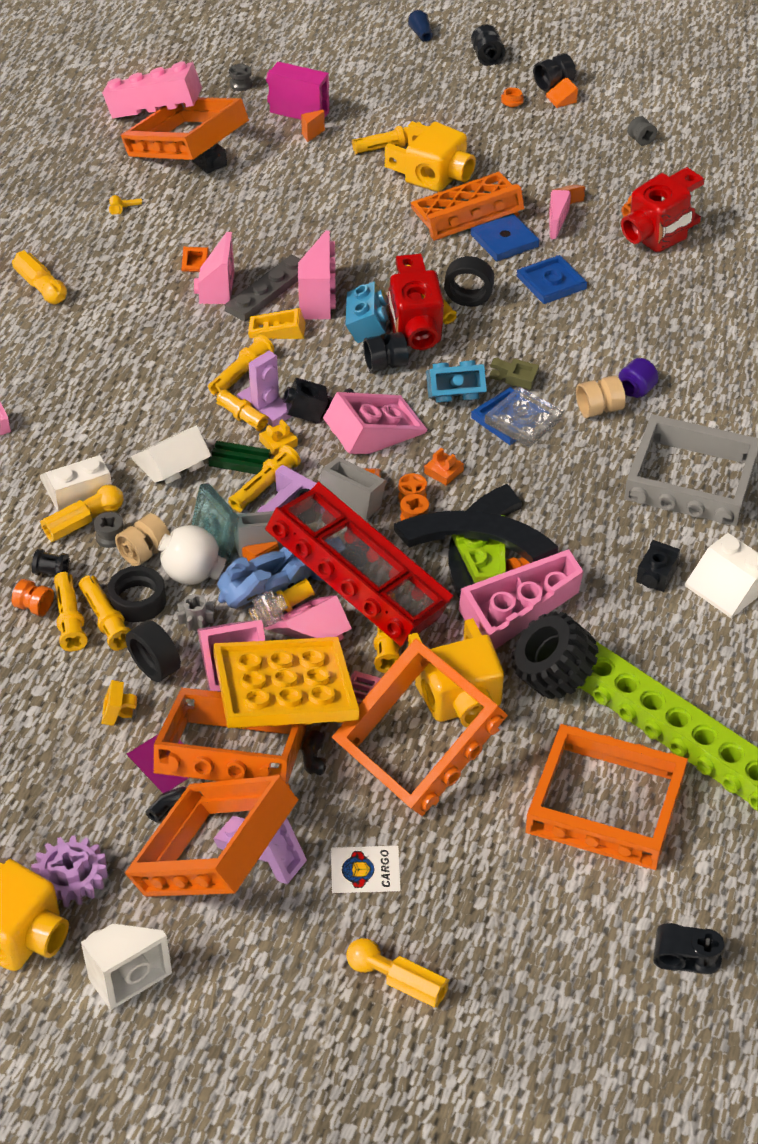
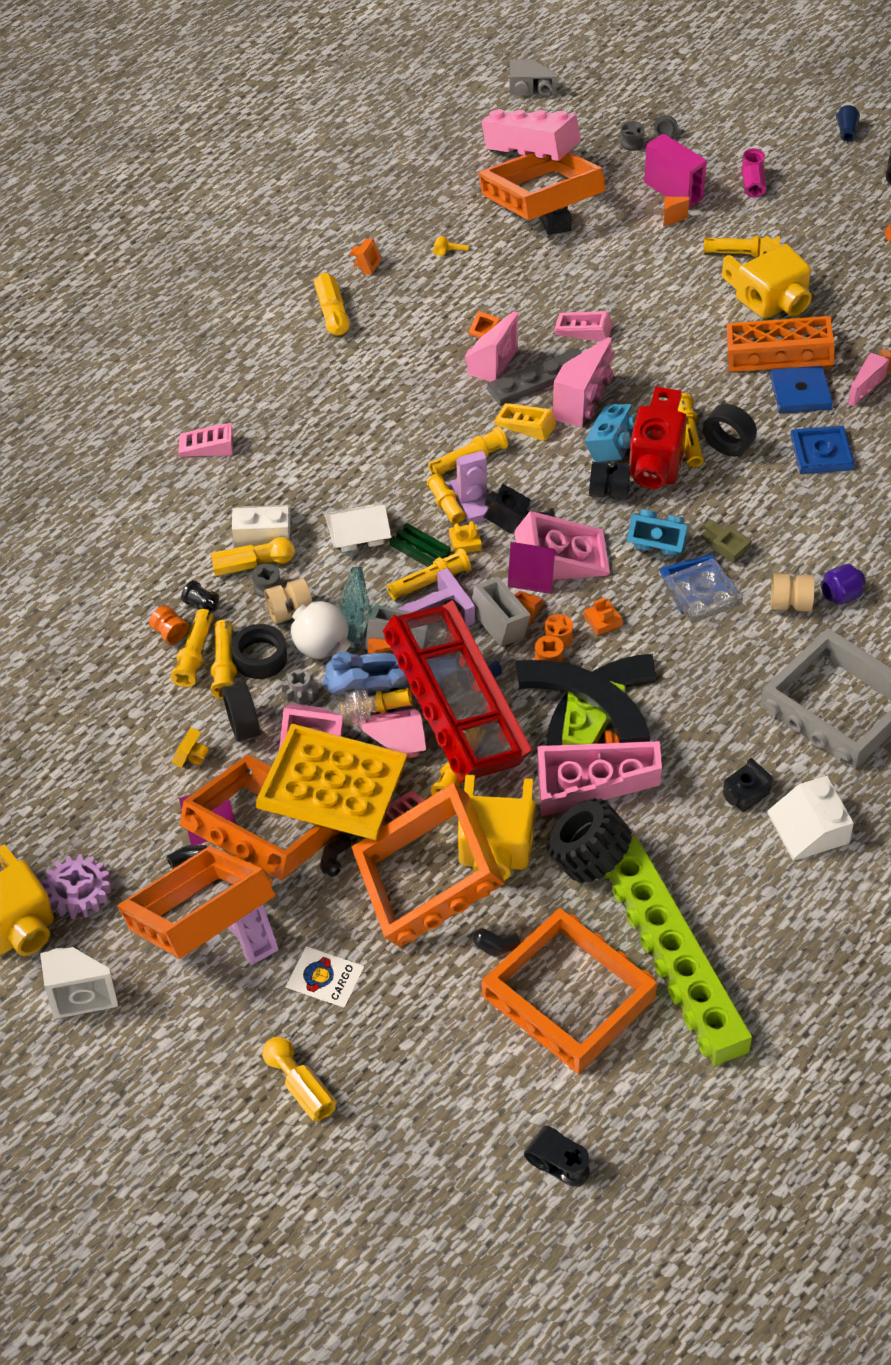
camera: 25 degrees right, 5 degrees up
(52, 228) = (367, 256): none -> orange tile
(123, 53) = (531, 78): none -> light grey slope
(264, 63) = (667, 125): none -> dark grey plate
(285, 235) = (594, 325): none -> bright pink slope
(361, 440) = (531, 567): none -> magenta sticker
(364, 81) = (753, 172): none -> dark pink piece
(511, 780) = (493, 944): none -> black arm

